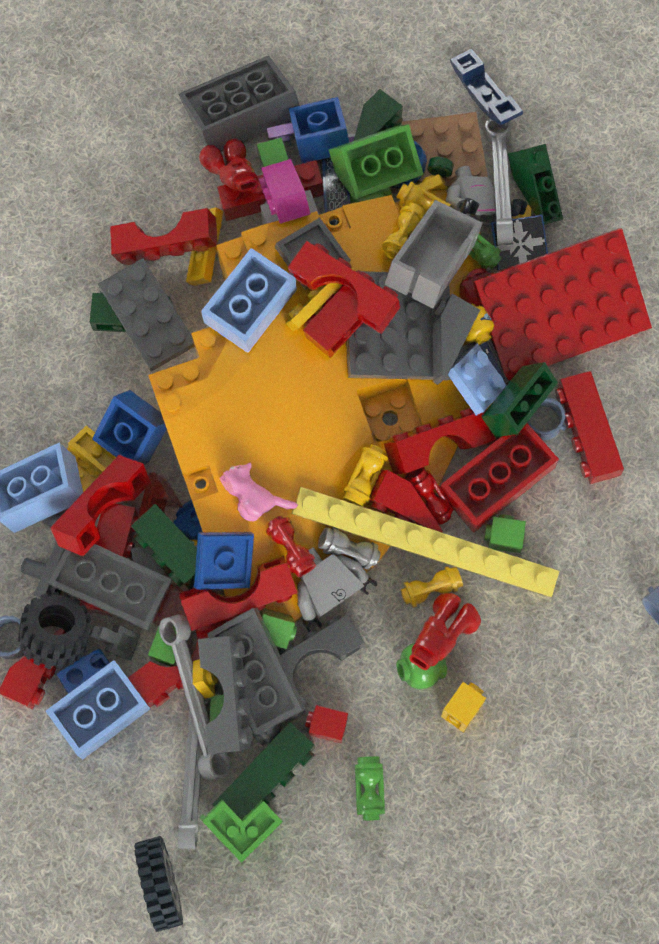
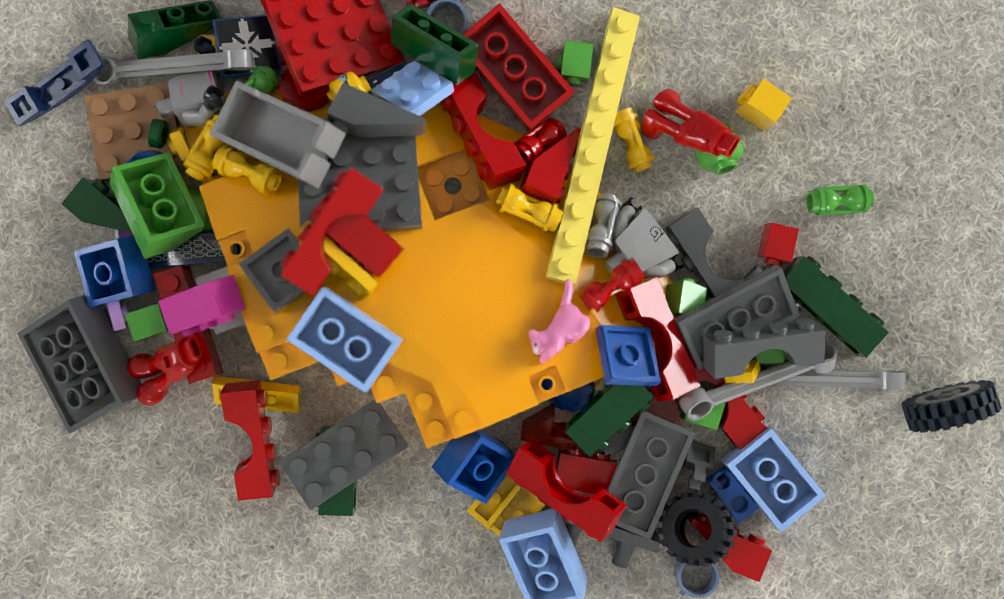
camera: 90 degrees left, 15 degrees up
(241, 835) = (896, 325): bright green panel -> none

